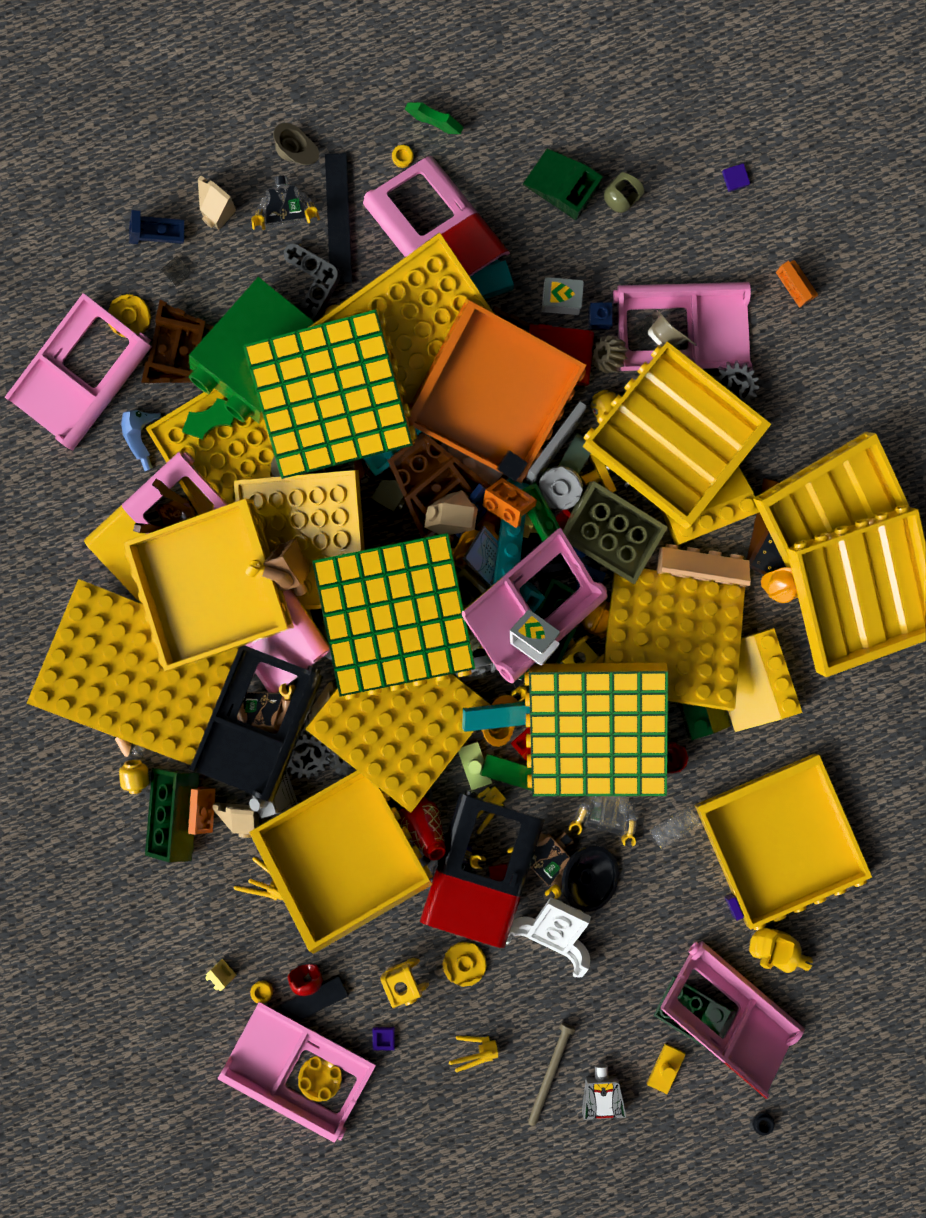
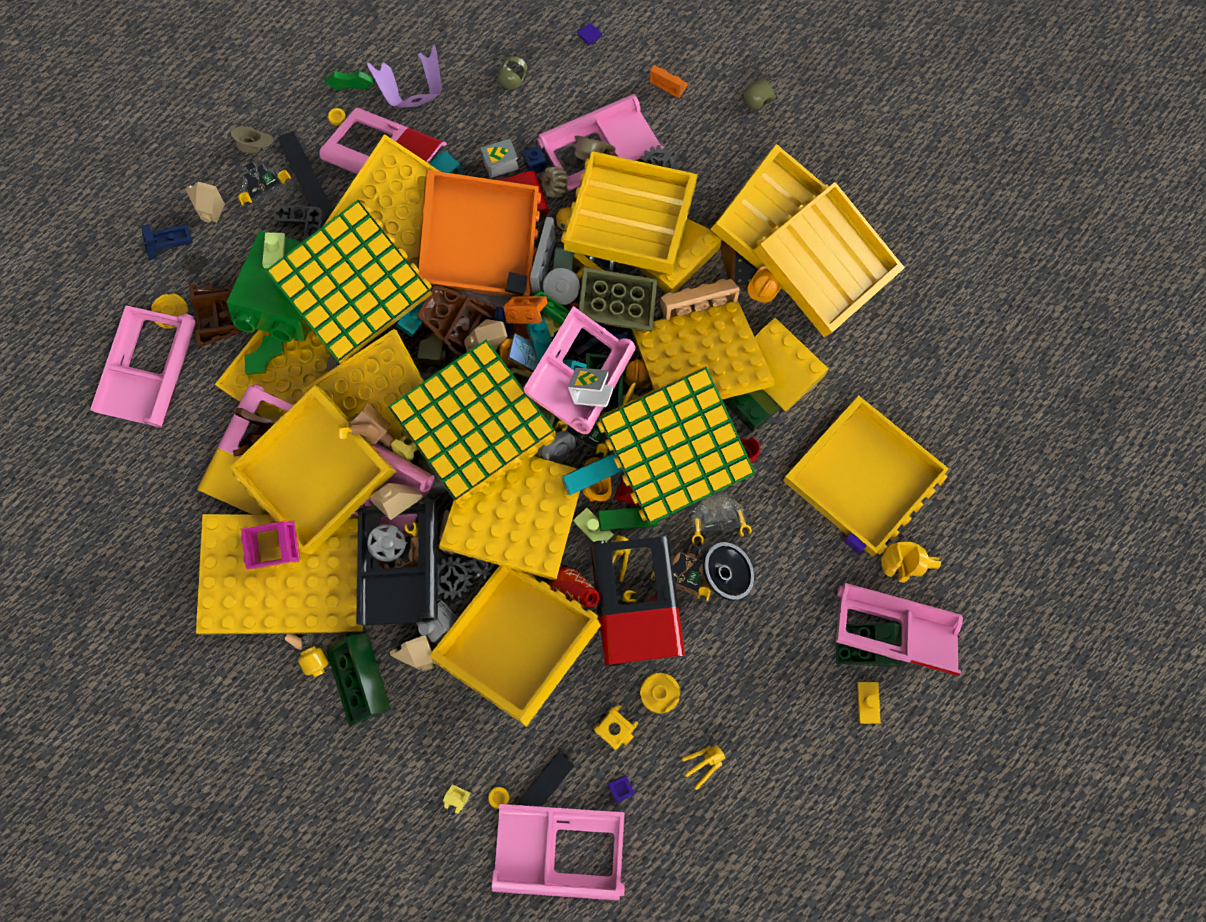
camera: 20 degrees left, 15 degrees down
(132, 425) = (203, 386): medium blue animal -> none
(152, 655) = (287, 542): none -> dark pink window
(201, 810) = (382, 661): orange bracket -> none
(254, 695) = (386, 542): none -> light grey wheel
(264, 310) = (273, 248): none -> yellowish green tile
(272, 891) = (473, 700): yellow plant -> none
(282, 655) = (395, 498): none -> tan slope
(297, 983) = (535, 771): red hair -> none
(310, 605) = (403, 450): none -> light yellow tile
(319, 1079) = (581, 850): yellow dish -> none
(476, 142) = (388, 86): none -> lavender piece
(552, 1068) = (775, 752): dark tan bar -> none
(558, 929) = (722, 626): white piece -> none
(563, 182) = (466, 84): dark green slope -> none
(602, 1096) = (828, 749): torso -> none
(675, 827) = (776, 502): clear slope -> none
(763, 1130) = (977, 708): black plate -> none
(891, 347) = (757, 93): none -> olive helmet

